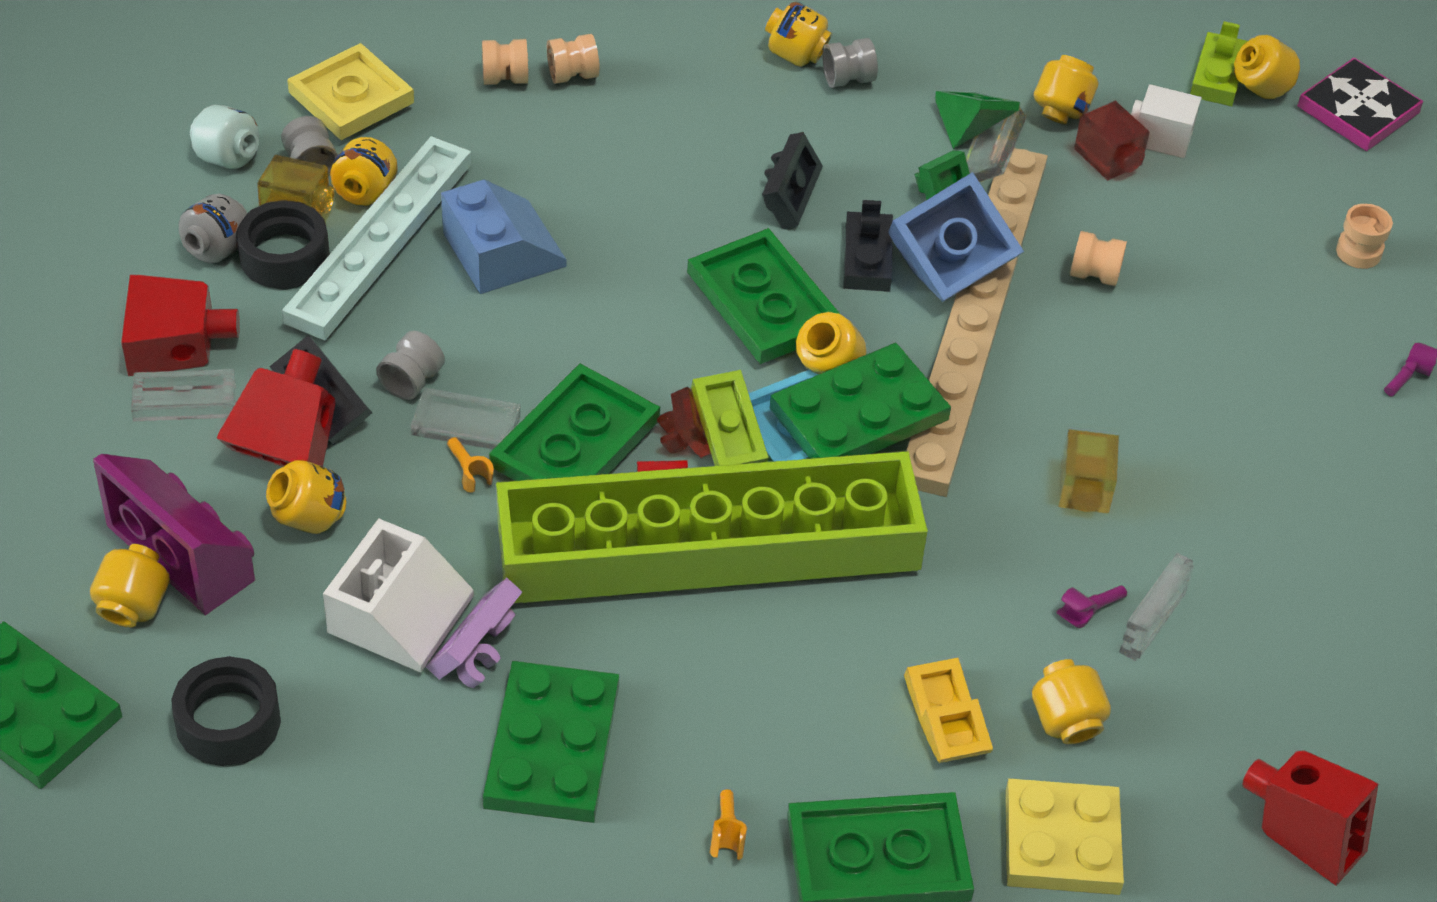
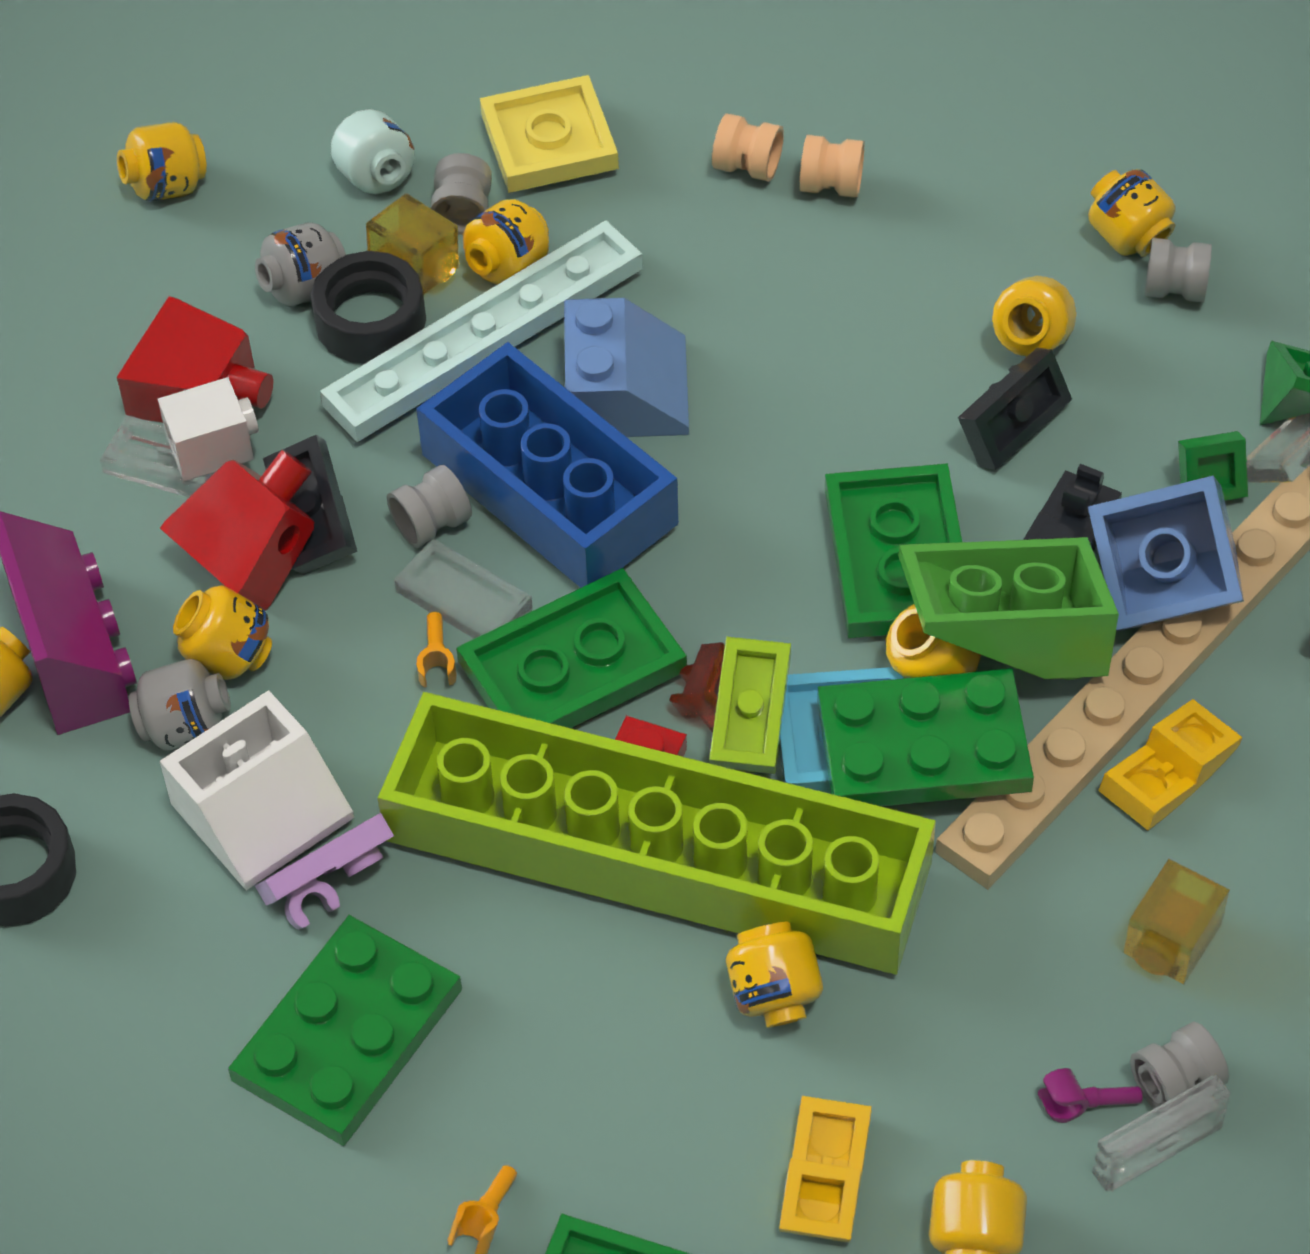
camera: 30 degrees right, 5 degrees up
(61, 186) = (162, 161): none -> yellow head
(213, 358) = (208, 427): none -> white brick
(299, 558) = (177, 703): none -> light grey head
(489, 309) = (548, 466): none -> blue brick
(789, 111) = (1014, 317): none -> yellow head
(846, 592) = (774, 973): none -> yellow head
(882, 295) = (1017, 602): none -> bright green slope
(1023, 376) = (1172, 764): none -> yellow slope
(1143, 561) = (1178, 1065): none -> light grey wheel

